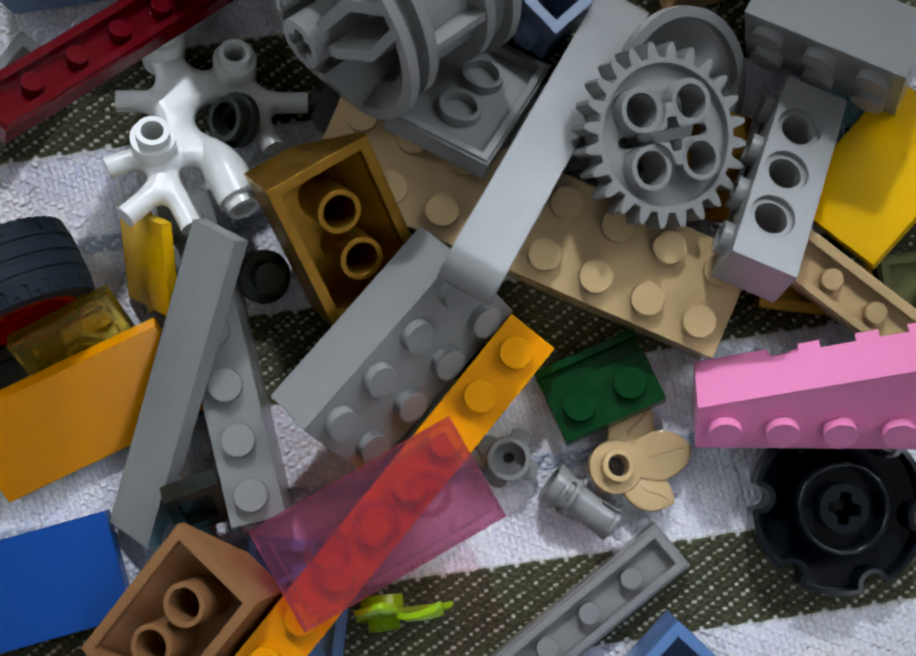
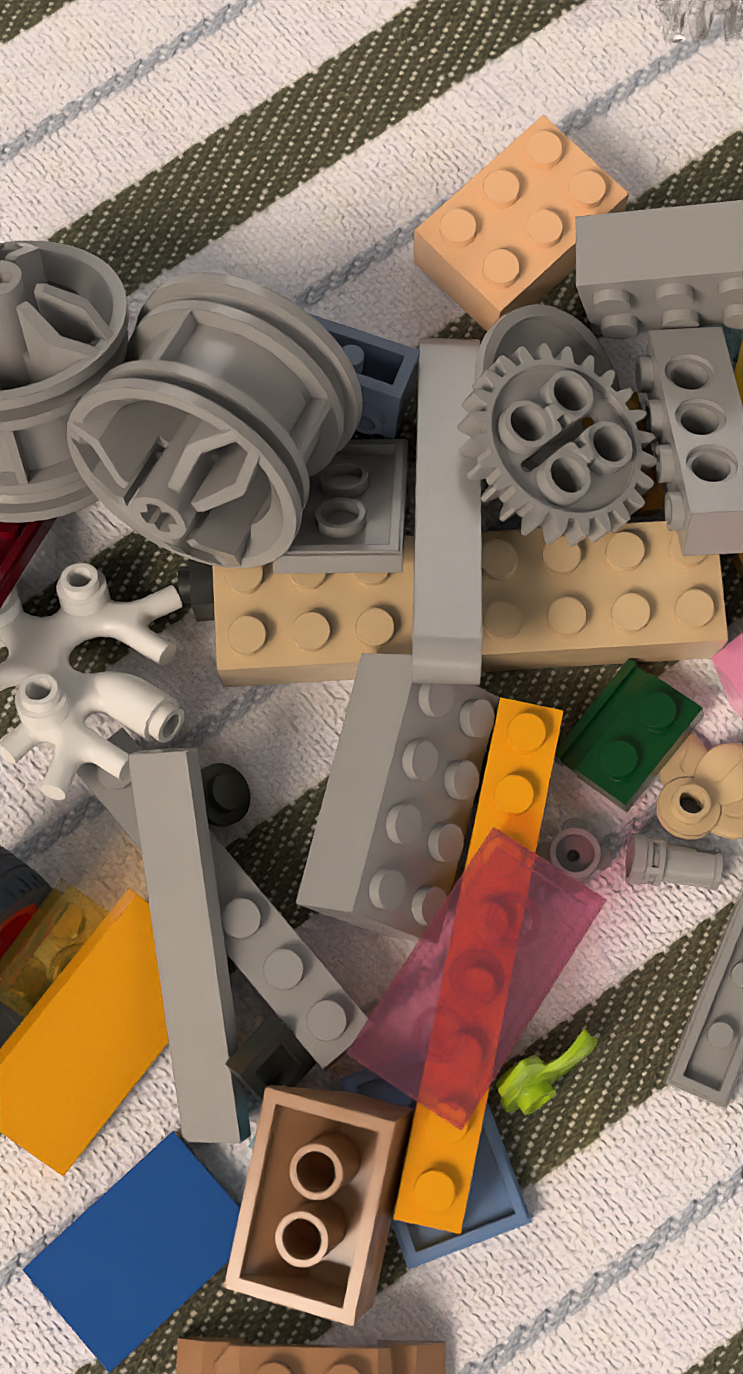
camera: 25 degrees left, 10 degrees down
(150, 261) = (94, 834): yellow piece -> none
(234, 119) = (101, 647): pearl dark grey plate -> none
(331, 217) = (266, 692): pearl gold slope -> none

